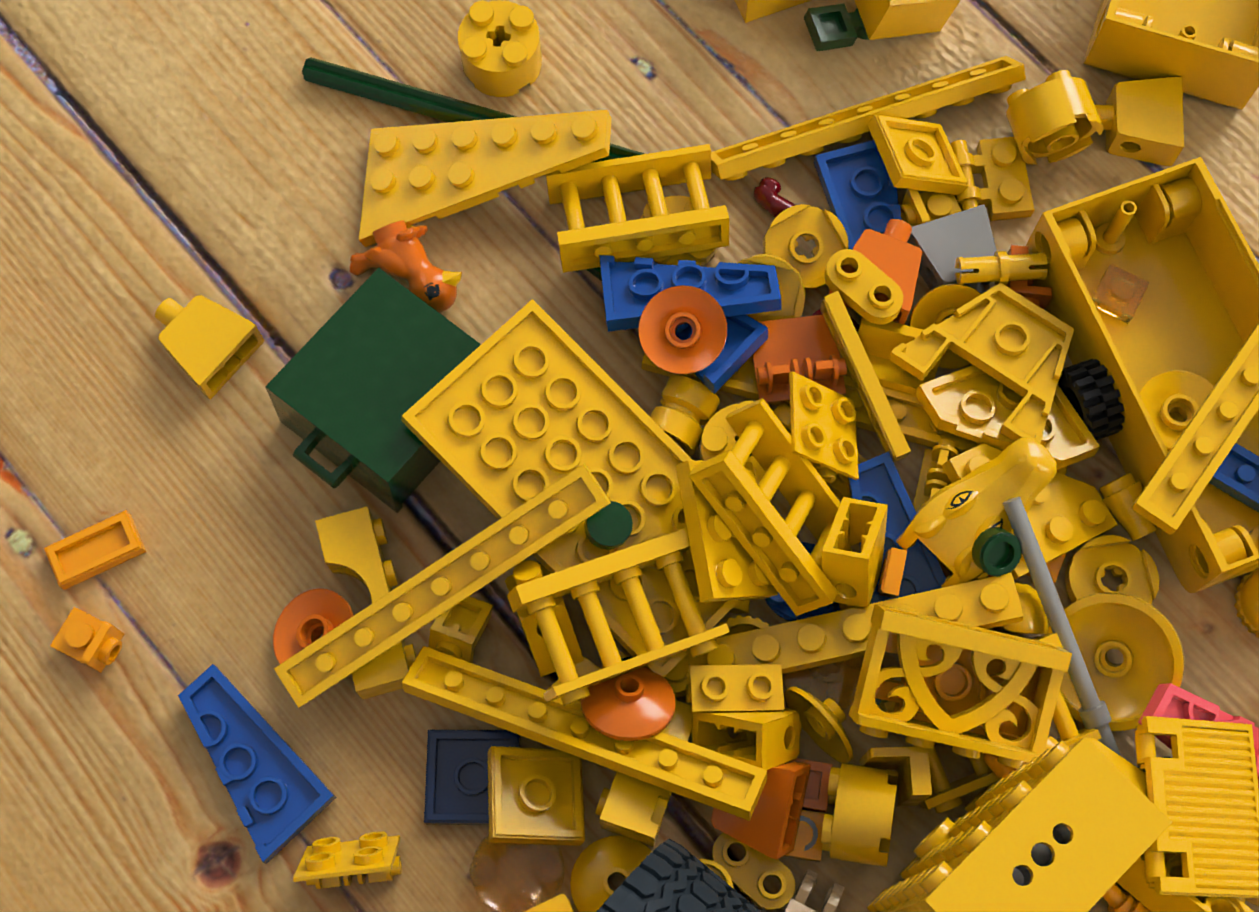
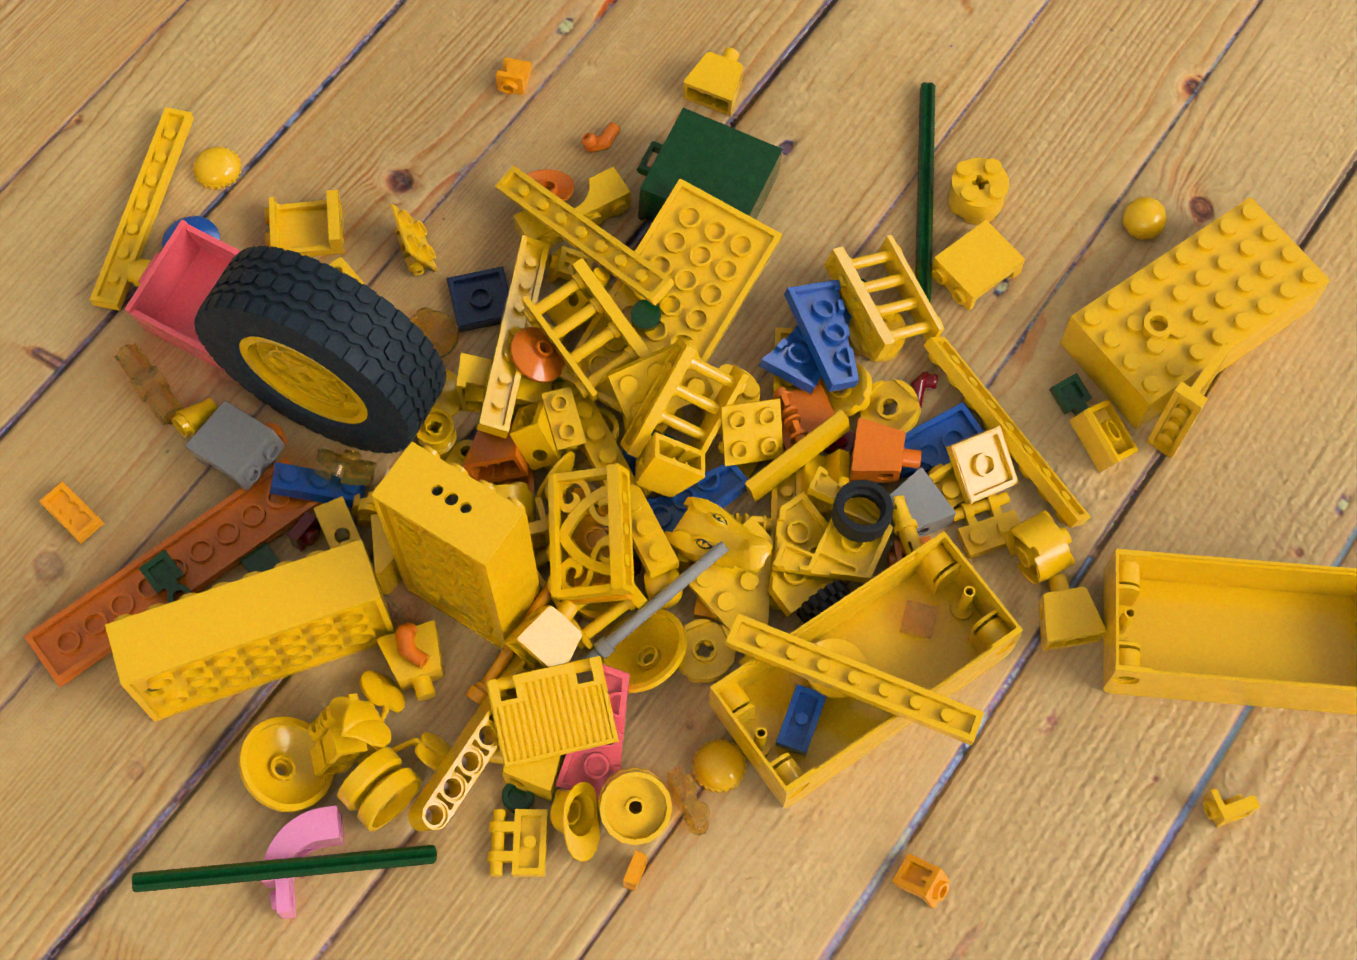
camera: 75 degrees right, 5 degrees down
(94, 550) = (570, 64): light orange tile -> none
(252, 533) = (602, 142): none -> orange arm
(262, 773) = (461, 180): blue wing -> none
(404, 257) = (805, 171): orange animal -> none
(461, 164) = (882, 186): yellow wing -> none
(535, 796) = (471, 327): yellow plate -> none
(615, 75) = (976, 264): none -> yellow panel
(677, 307) = (787, 321): orange dish -> none
(684, 409) = (745, 355): yellow wheel -> none
(859, 287) = (859, 433): yellow plate -> none
(892, 572) = (665, 499): light orange tile -> none
(981, 281) = (868, 490): none -> black tyre
(996, 551) = (689, 547): dark green tile -> none

